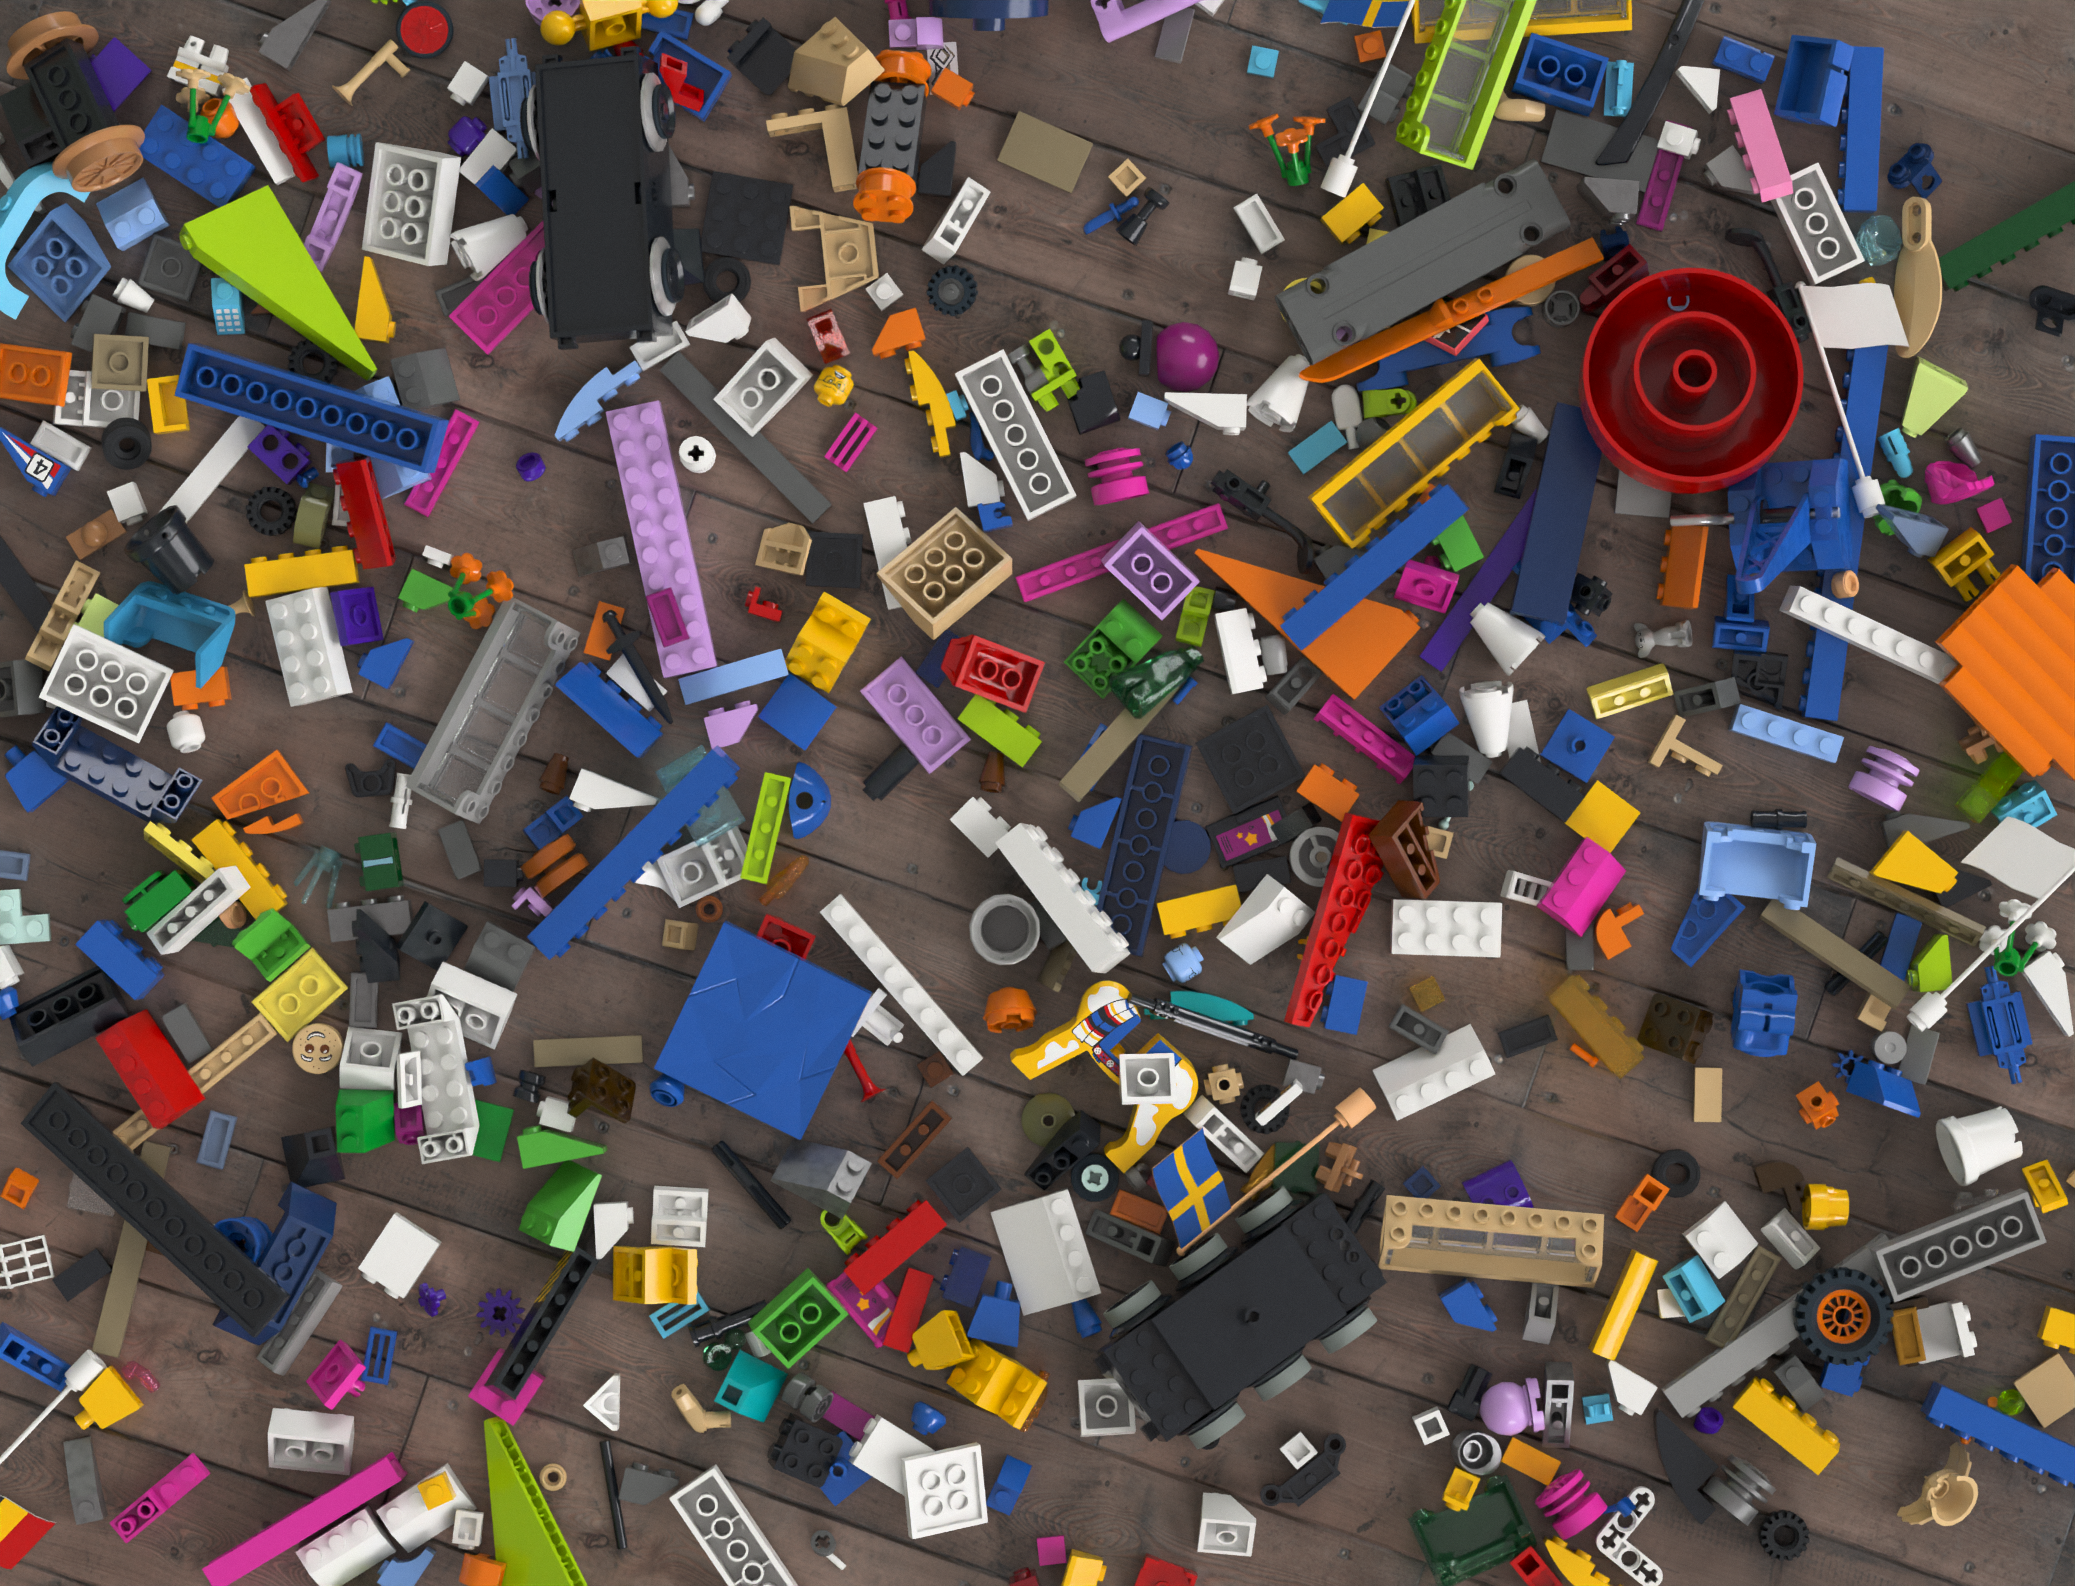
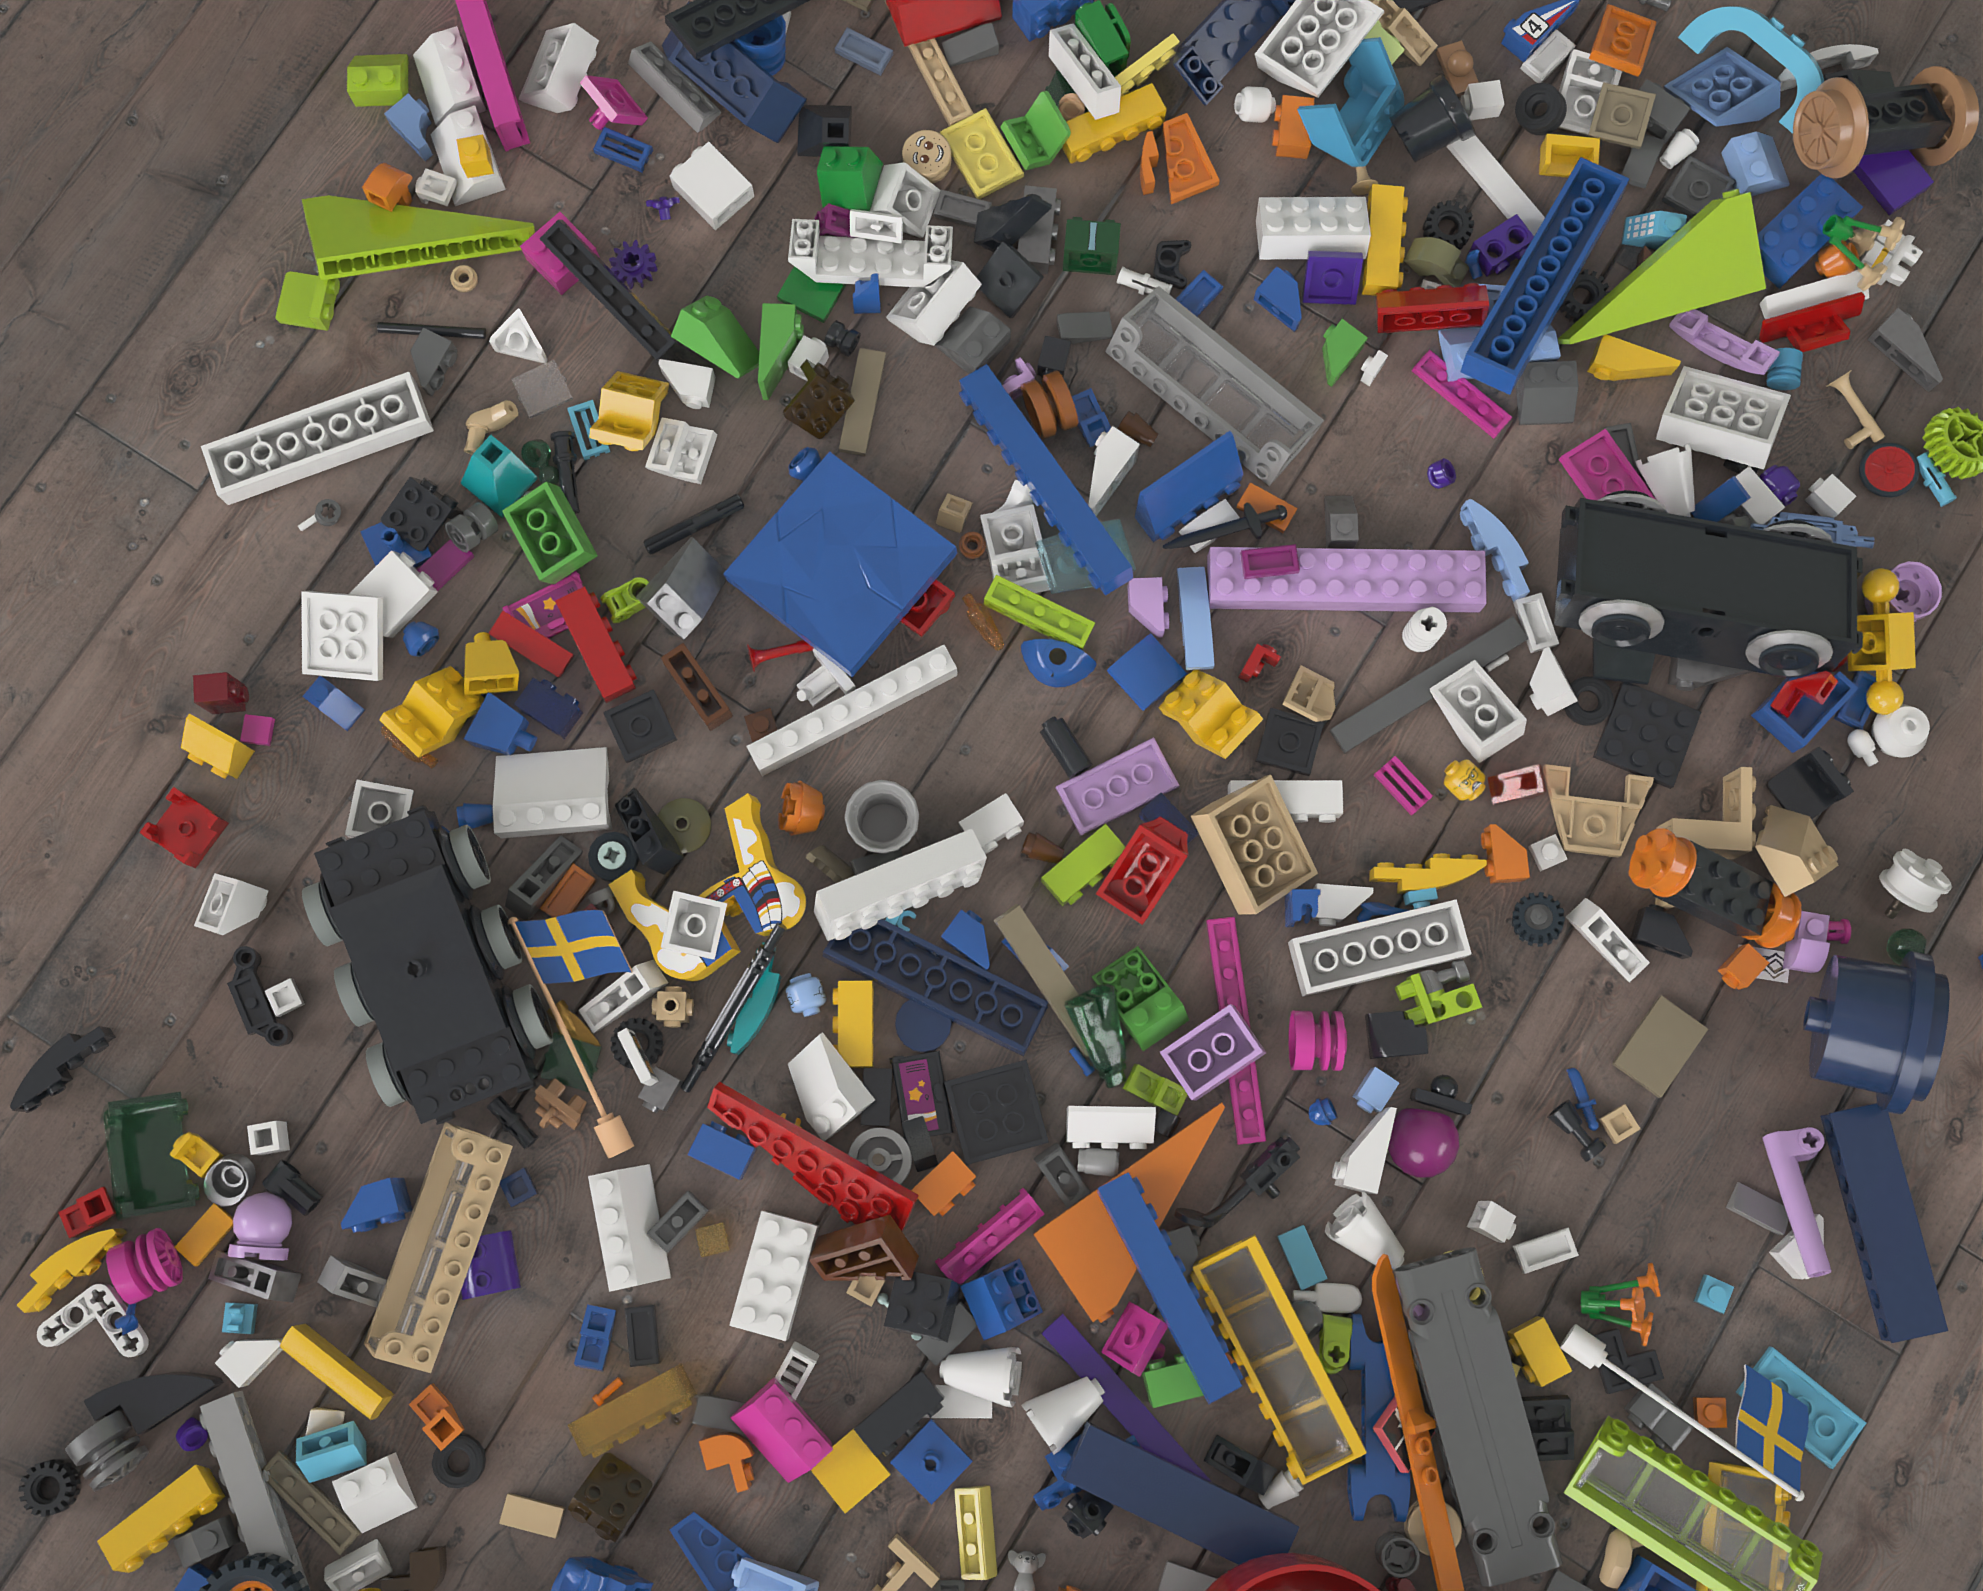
camera: 100 degrees right, 10 degrees down
(325, 860) = (1104, 202): clear light blue plant -> none
(476, 608) = (1313, 395): orange plant -> none
(647, 1370) = (542, 389): none -> clear piece
(708, 375) = (1496, 663): none -> white piece
(1539, 1078) = (595, 1338): none -> blue slope

